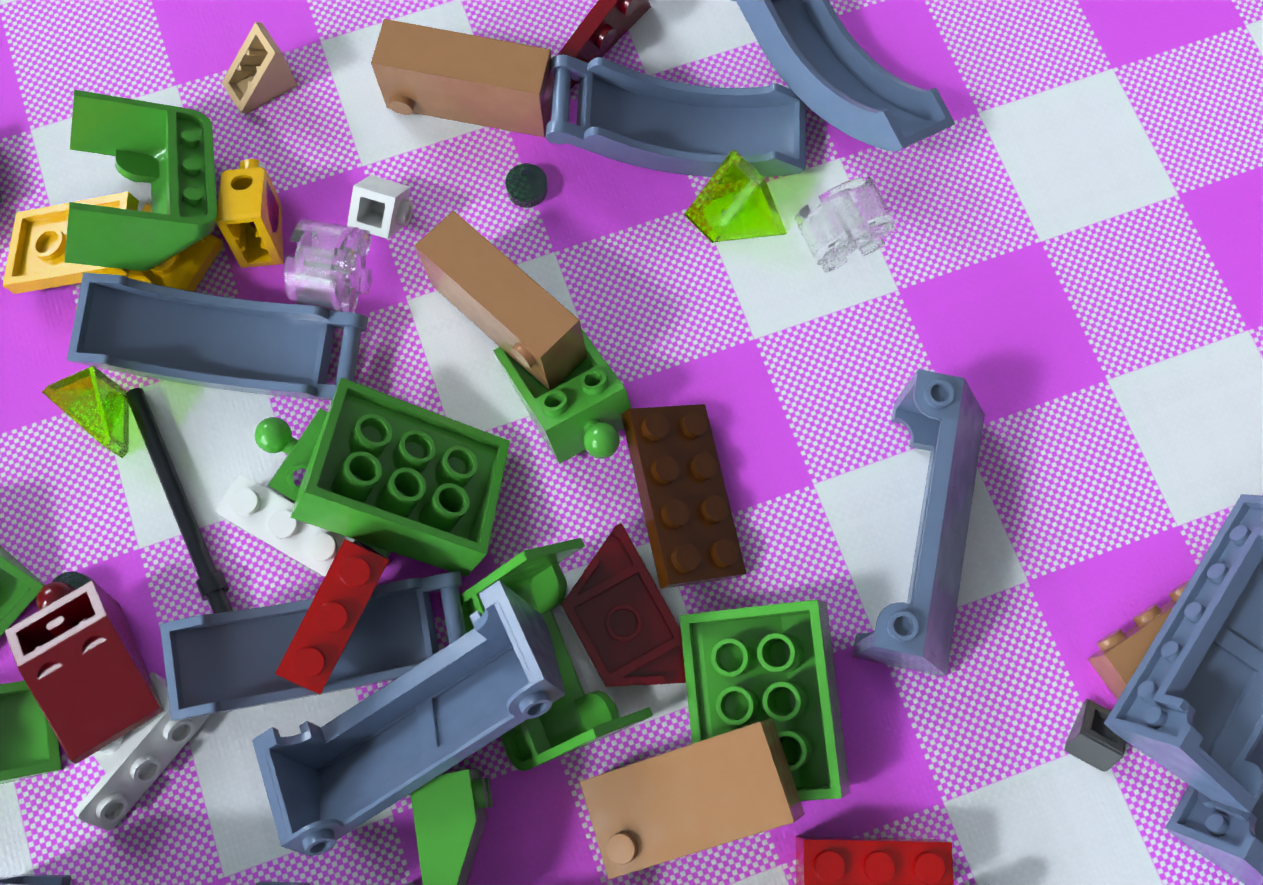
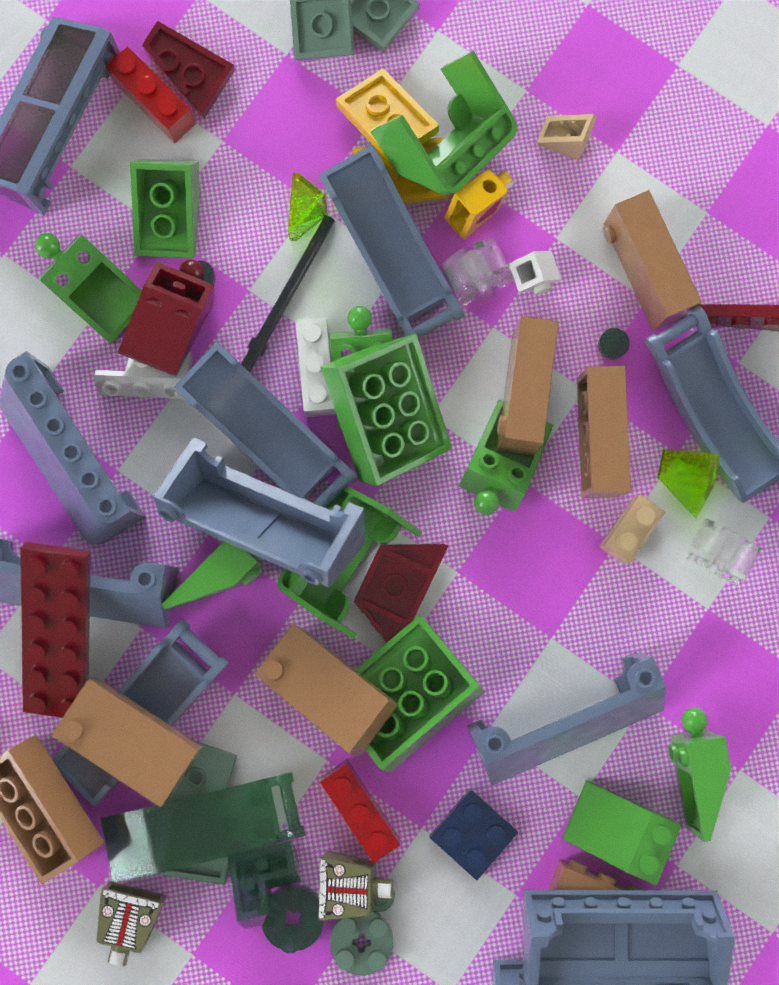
camera: 50 degrees right, 10 degrees up
(332, 616) = (285, 429): red brick -> none
(617, 256) = (603, 432): none -> medium nougat brick
(683, 495) = (490, 568): reddish brown plate -> none
(750, 304) = (632, 529): none -> tan brick
(992, 742) = (473, 834): none -> dark blue plate
(1090, 419) = (701, 771): none -> bright green slope
(1093, 740) = (512, 890): dark grey slope -> none
(1101, 560) = (621, 832): none -> bright green slope

